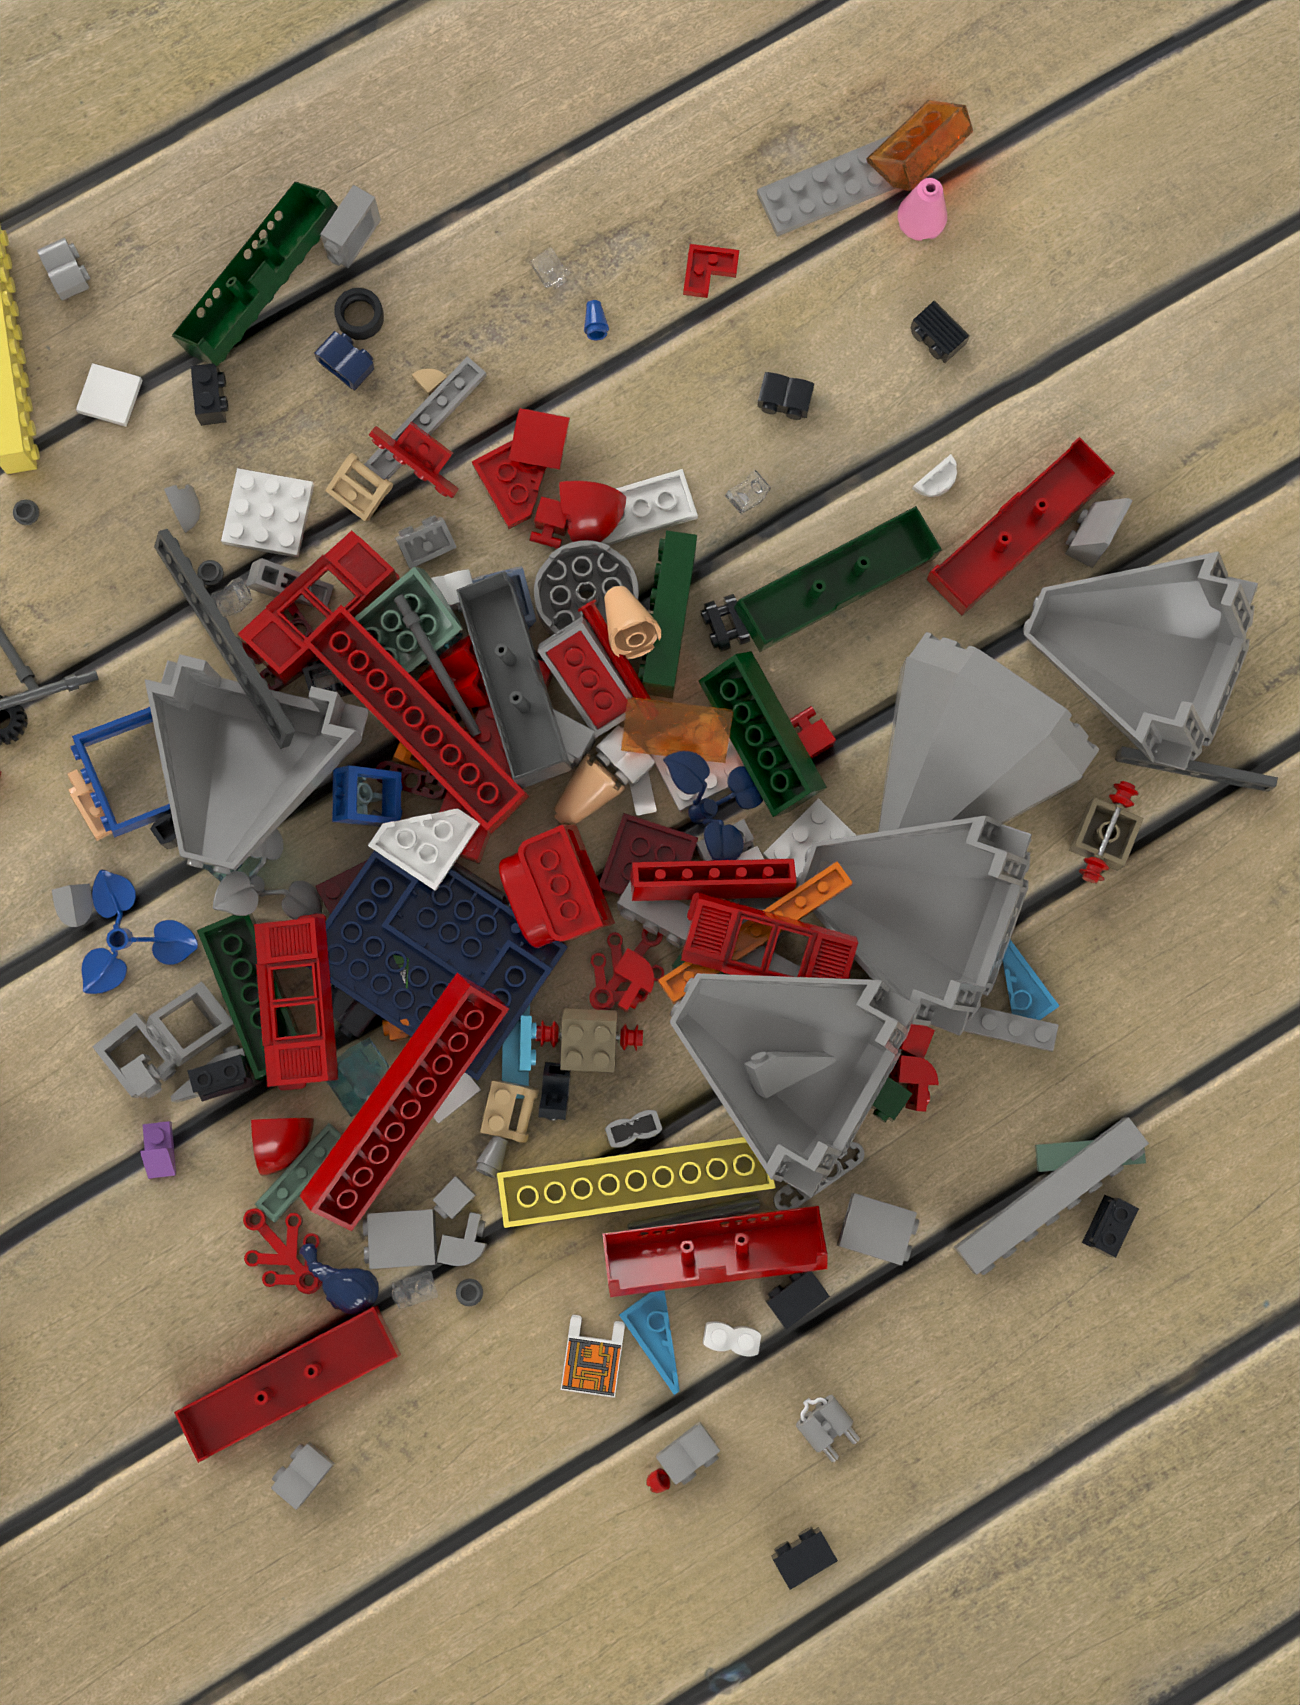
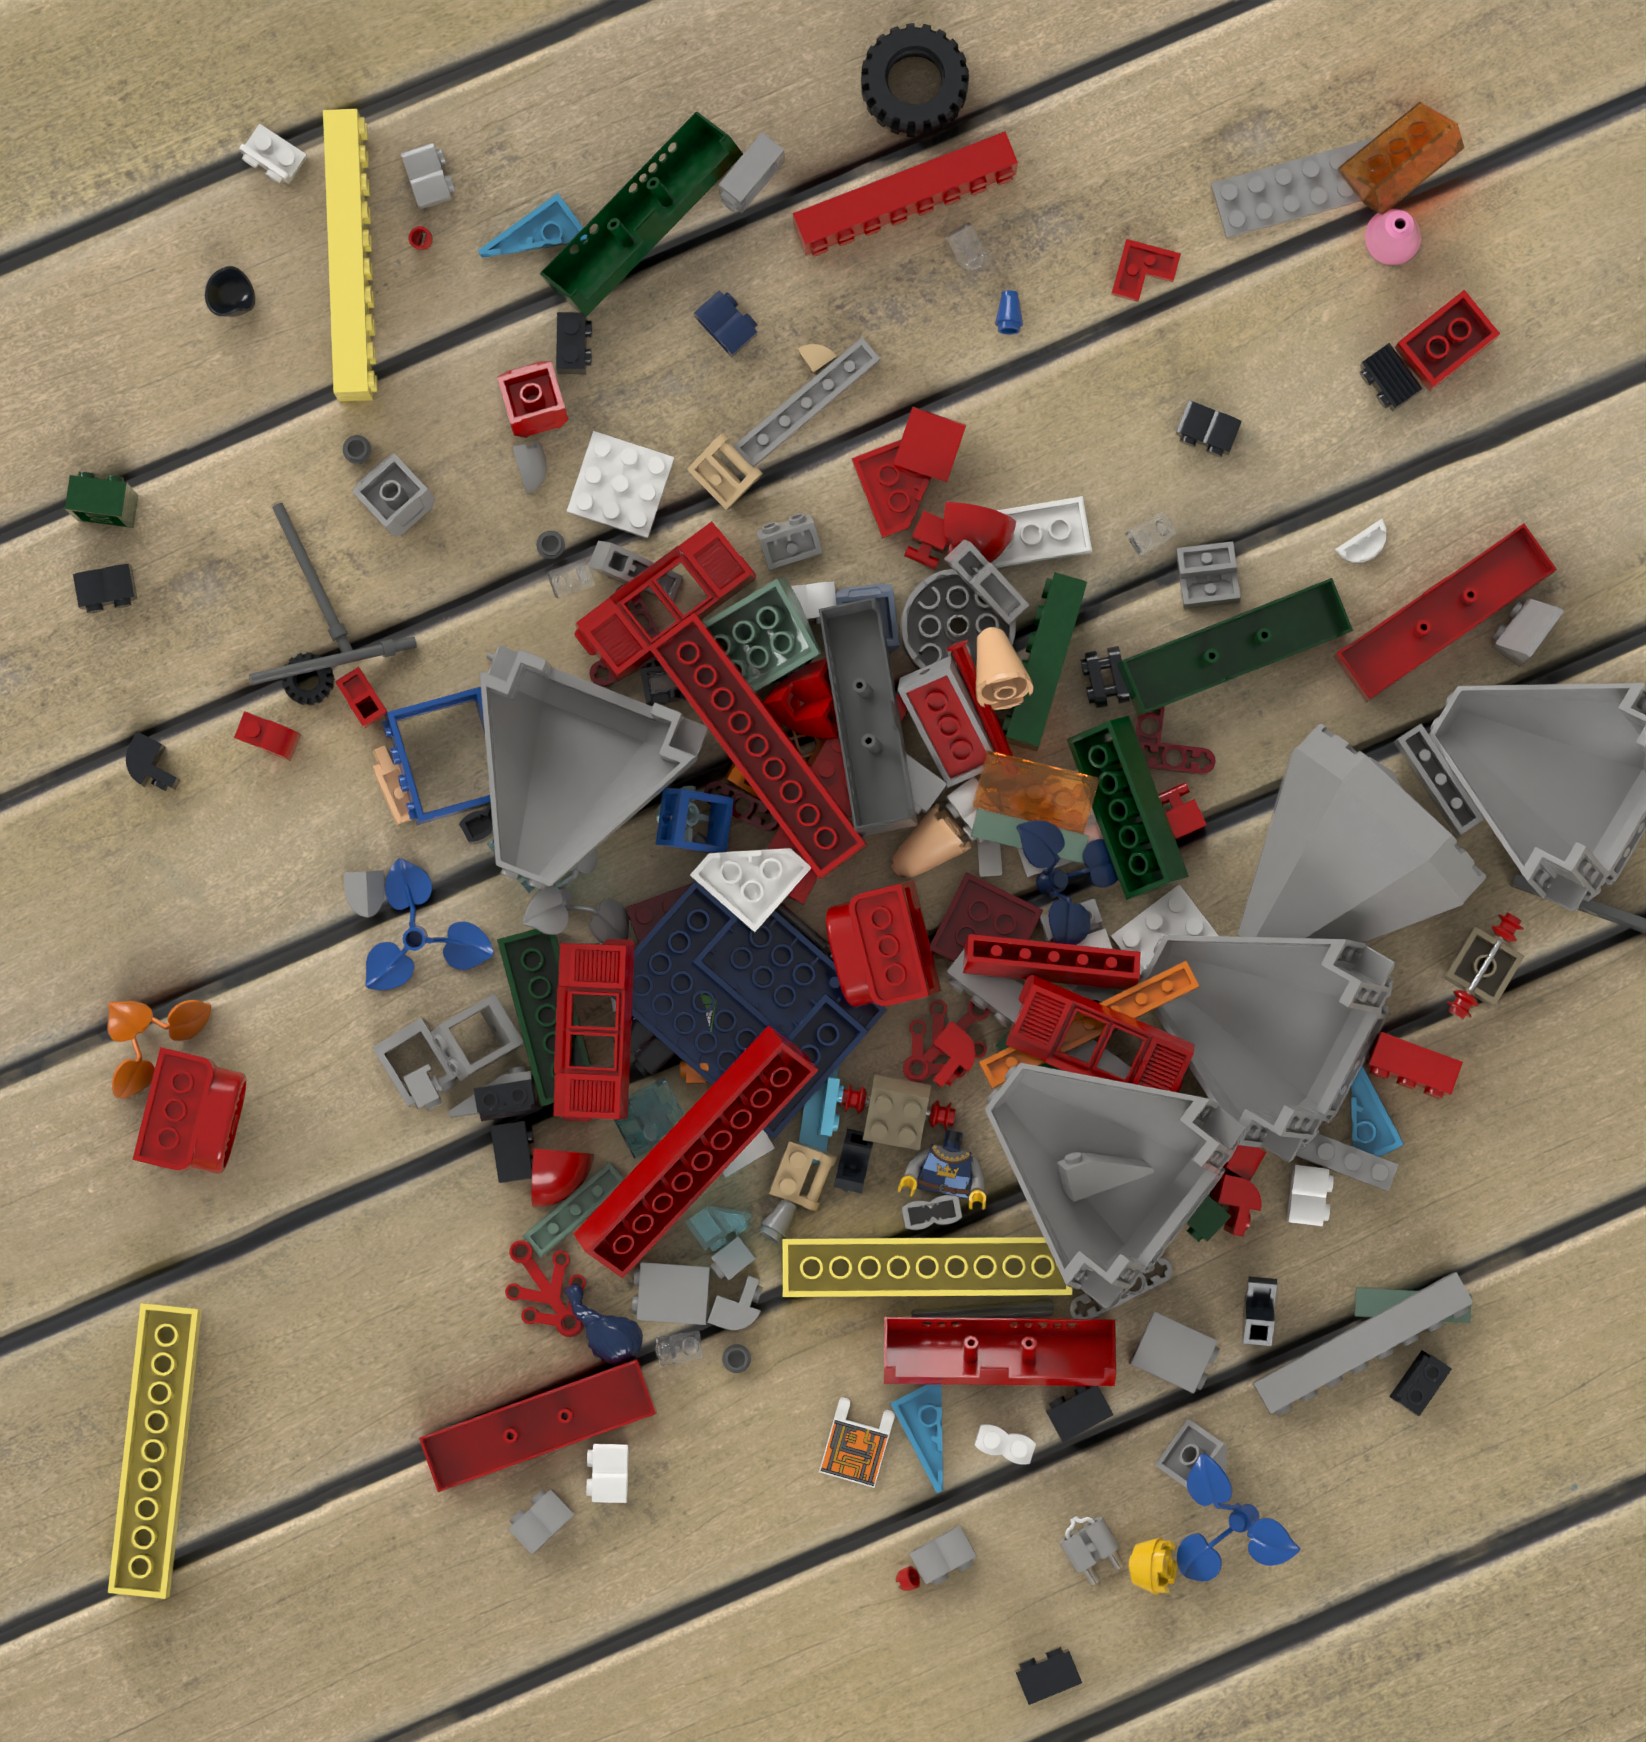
camera: 15 degrees right, 5 degrees up
(50, 728) = (361, 697): none -> red brick
(60, 322) = (416, 235): none -> red hinge
(64, 547) = (394, 495): none -> light grey slope
(109, 395) = (461, 327): white tile -> none
(159, 1150) = (427, 1165): medium lavender slope -> none
(168, 302) = (544, 227): none -> dark azure wing
(179, 448) = (532, 399): none -> red slope
(224, 639) = (560, 625): dark grey plate -> none
(234, 1125) = (513, 1151): none -> black brick
(356, 295) = (751, 249): black tyre -> none
(362, 1419) = (609, 1473): none -> white brick
(413, 621) = (767, 636): dark grey bar -> none
(420, 453) = (796, 444): red bracket -> none
(431, 1169) = (715, 1223): none -> clear light blue slope
(479, 103) = (914, 43): none -> black tyre
(489, 227) = (905, 194): none -> red brick
(606, 547) = (986, 581): none -> light grey slope
(642, 1088) = (946, 1171): none -> torso
(653, 769) = (1003, 830): none -> sand green tile
(776, 676) = (1153, 741): none -> dark red beam
(804, 523) = (1208, 575): none -> light grey slope
(888, 1436) = (1153, 1565): none -> yellow cone
(913, 1329) = (1186, 1448): none -> light grey slope
(950, 1179) = (1259, 1311): none -> black brick
(979, 1066) = (1308, 1195): none -> white brick
(985, 292) = (1447, 340): none -> red brick
(996, 1400) = (1269, 1539): none -> blue plant
(1036, 668) = (1439, 780): none -> light grey brick
(1058, 932) = (1413, 1065): none -> red brick

